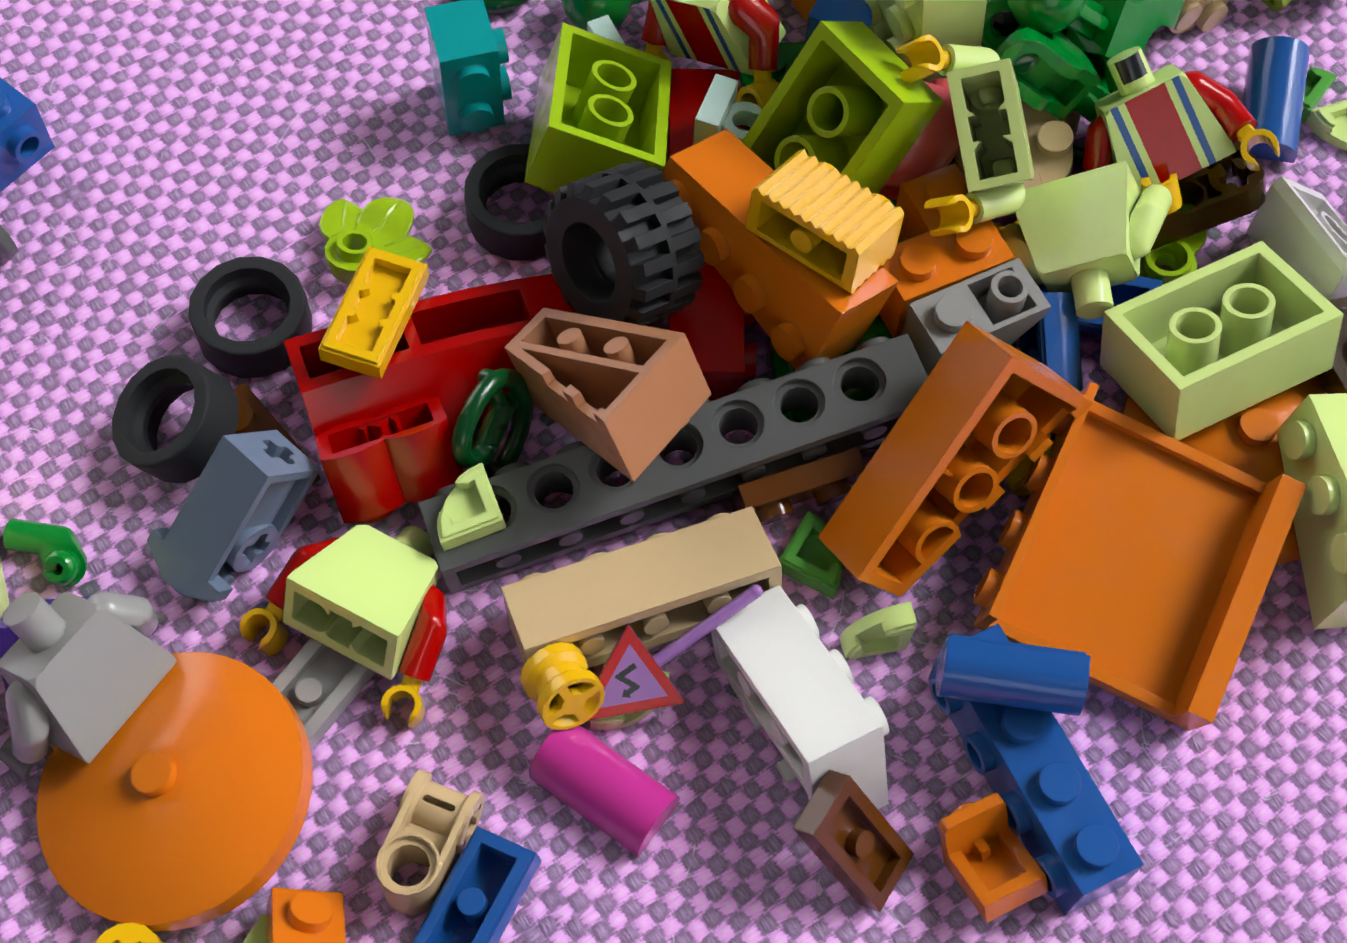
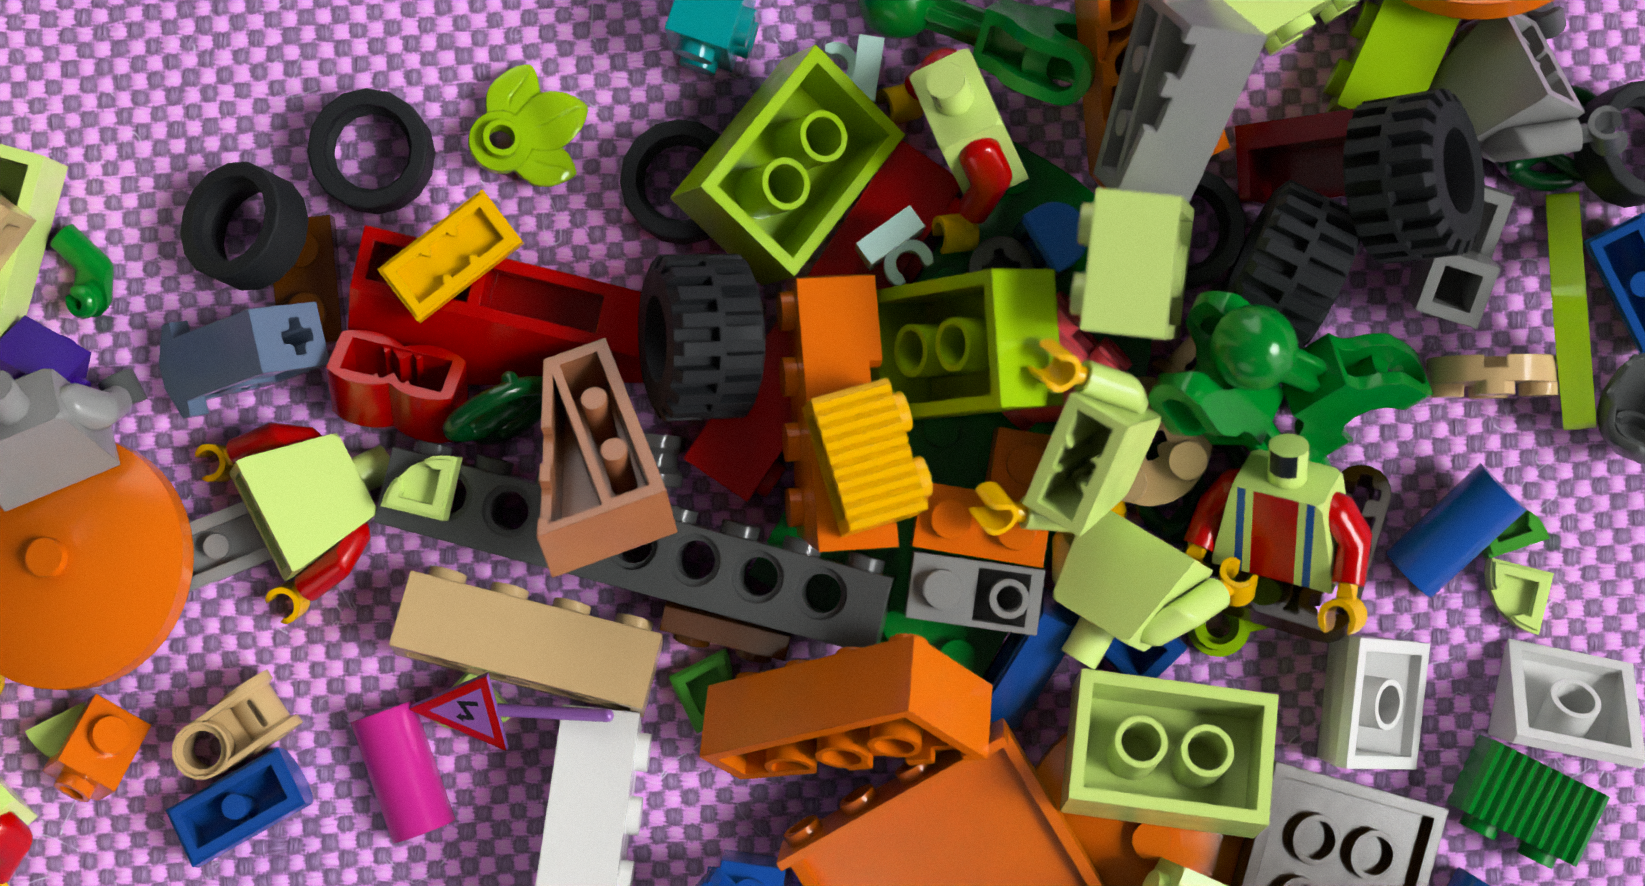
camera: 40 degrees right, 25 degrees up
(562, 686) = (406, 686): yellow wheel -> none
(879, 632) = (709, 796): yellowish green tile -> none

